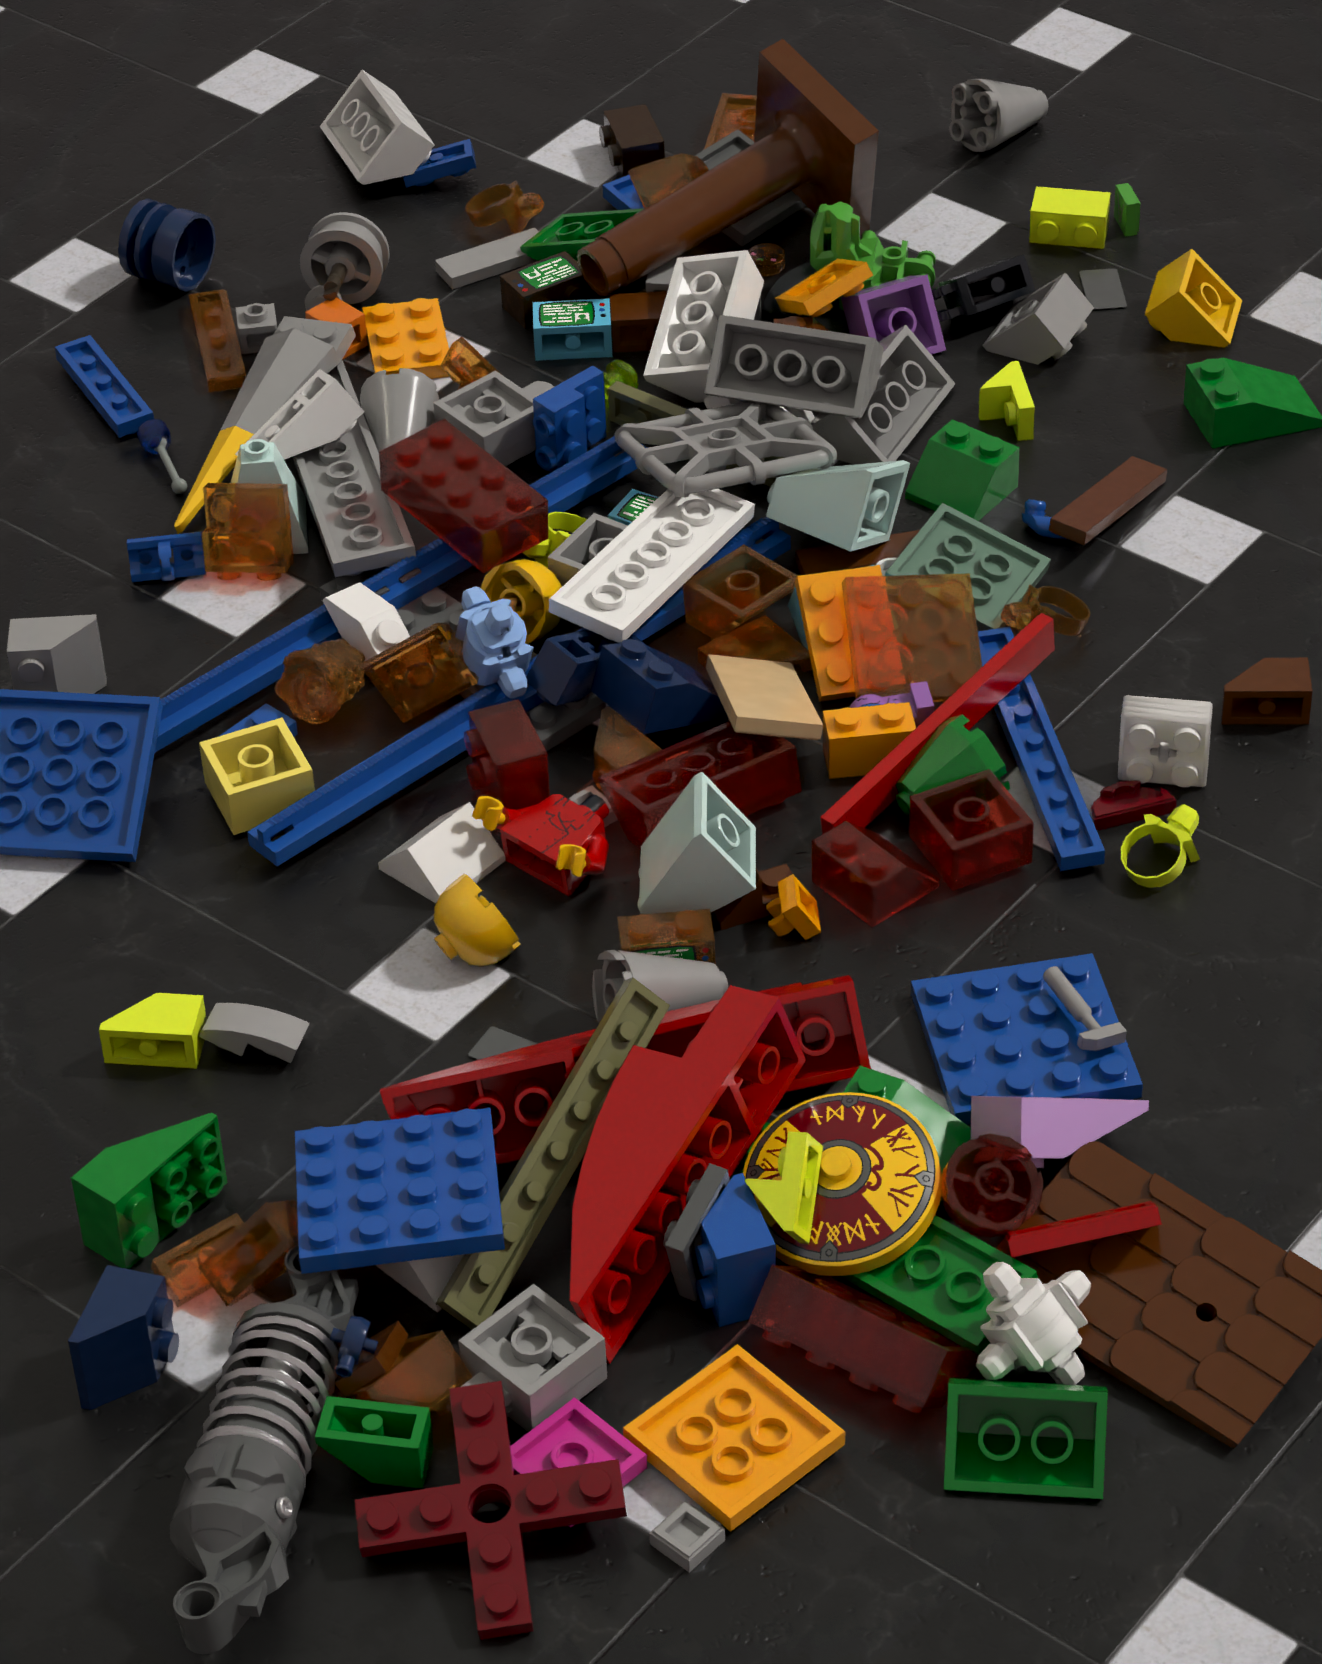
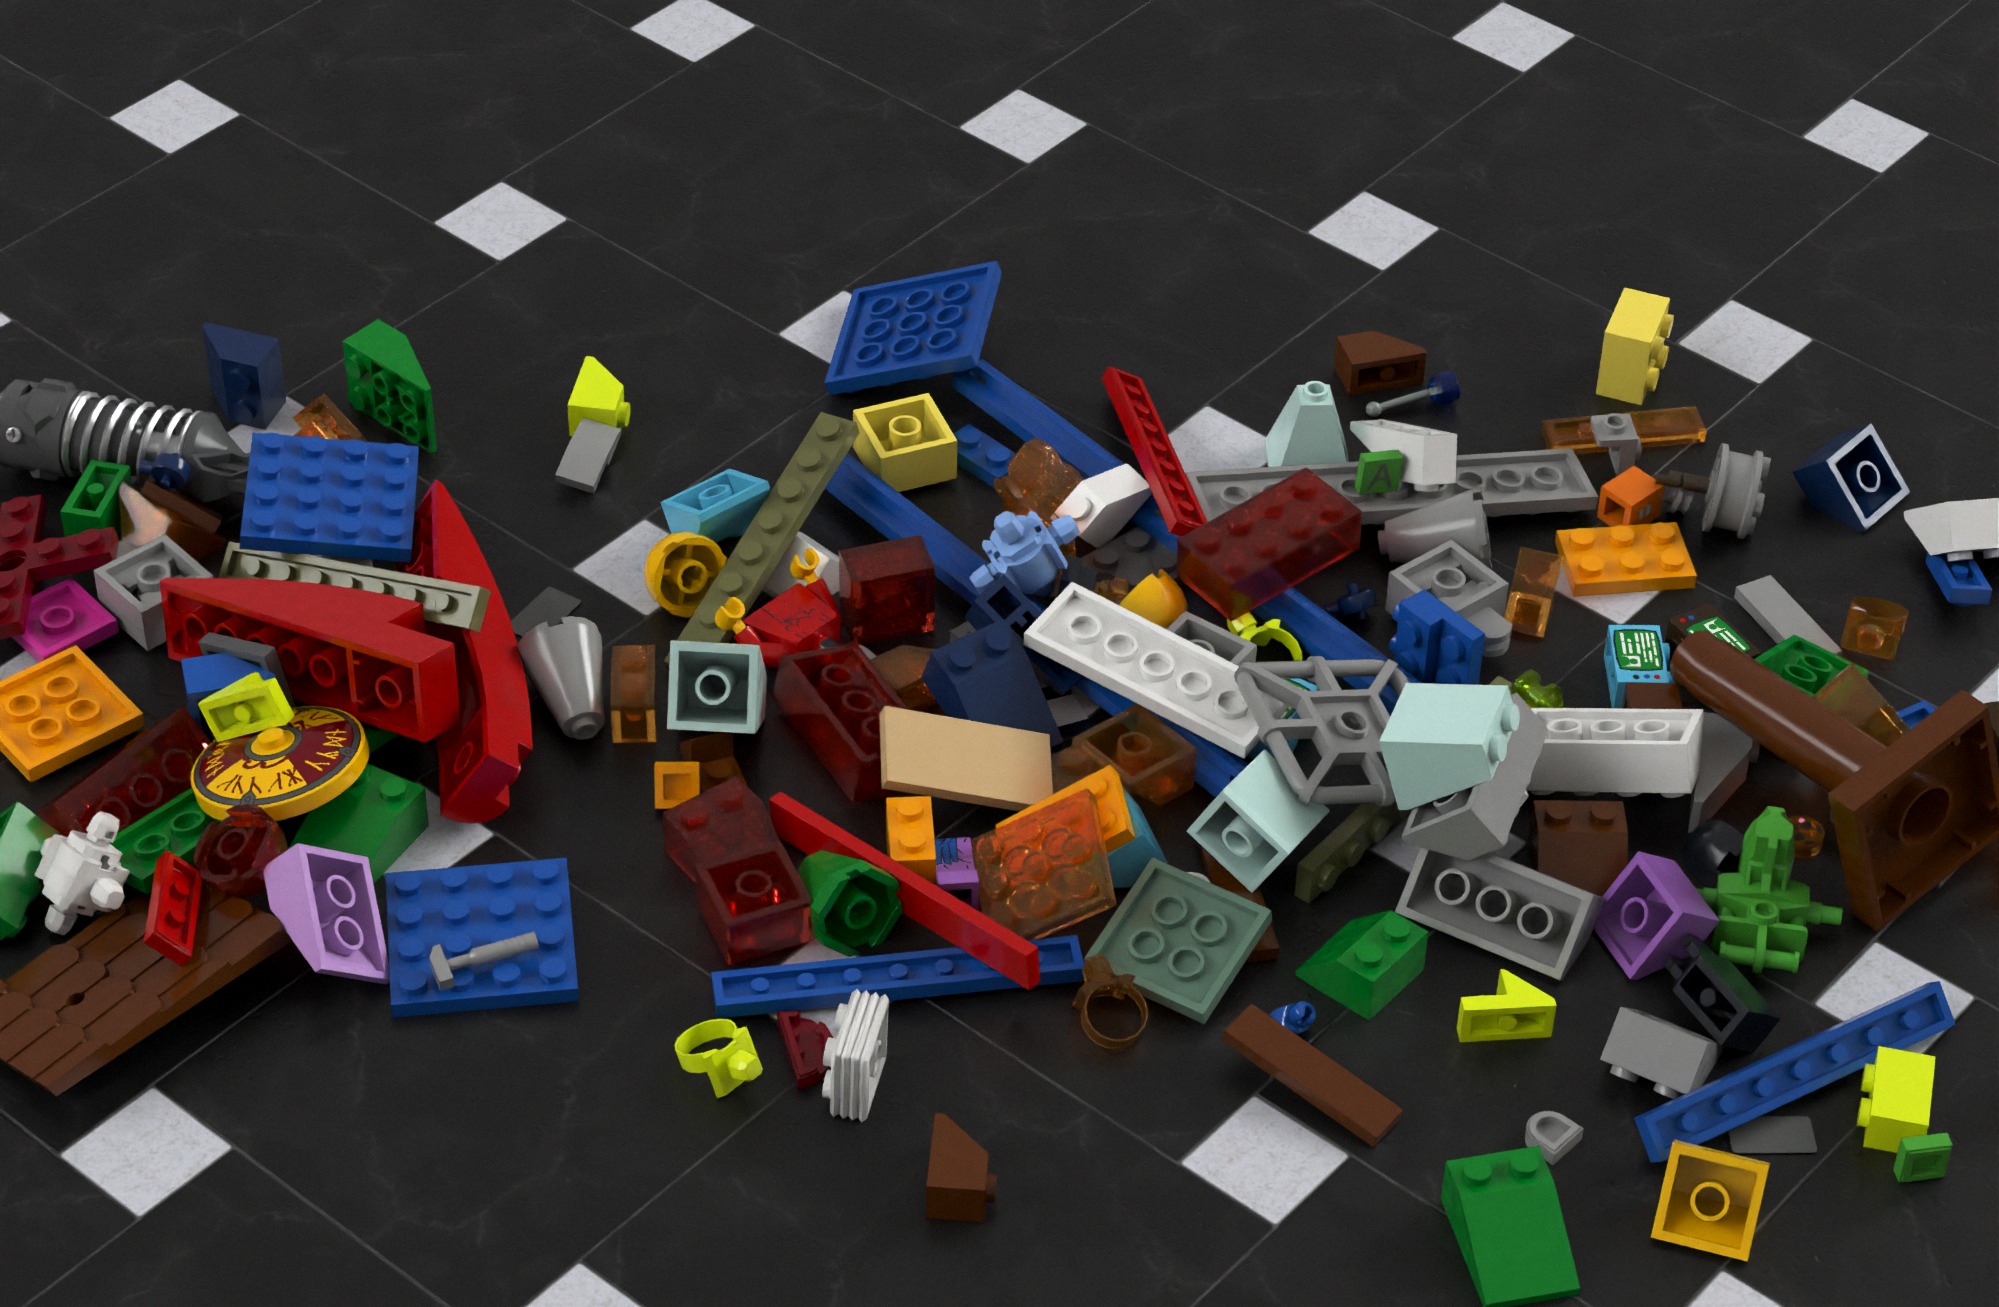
camera: 90 degrees right, 0 degrees up
(56, 654) = (1064, 316): light grey slope -> none
(104, 385) = (1529, 354): blue plate -> none
(115, 478) = (1377, 362): none -> reddish brown slope
(123, 308) = (1634, 346): none -> light yellow brick
(146, 555) = (1247, 395): blue hips -> none
(167, 244) = (1750, 372): dark blue wheel -> none
(247, 530) = (1256, 426): clear orange plate -> none
(277, 373) = (1537, 457): light grey plate -> none
(290, 592) = (1154, 452): none -> red tile
(291, 207) = (1852, 478): none -> dark blue slope
(339, 439) = (1379, 472): none -> bright green tile
(386, 892) = (717, 506): none -> medium azure slope
(450, 851) = (773, 526): none -> olive plate
(791, 350) = (1446, 739): none -> light aqua slope
(817, 291) = (1671, 837): light orange plate -> none
(1038, 256) = (1794, 1071): none -> blue plate
(1136, 388) = (1553, 1134): none -> light grey tile

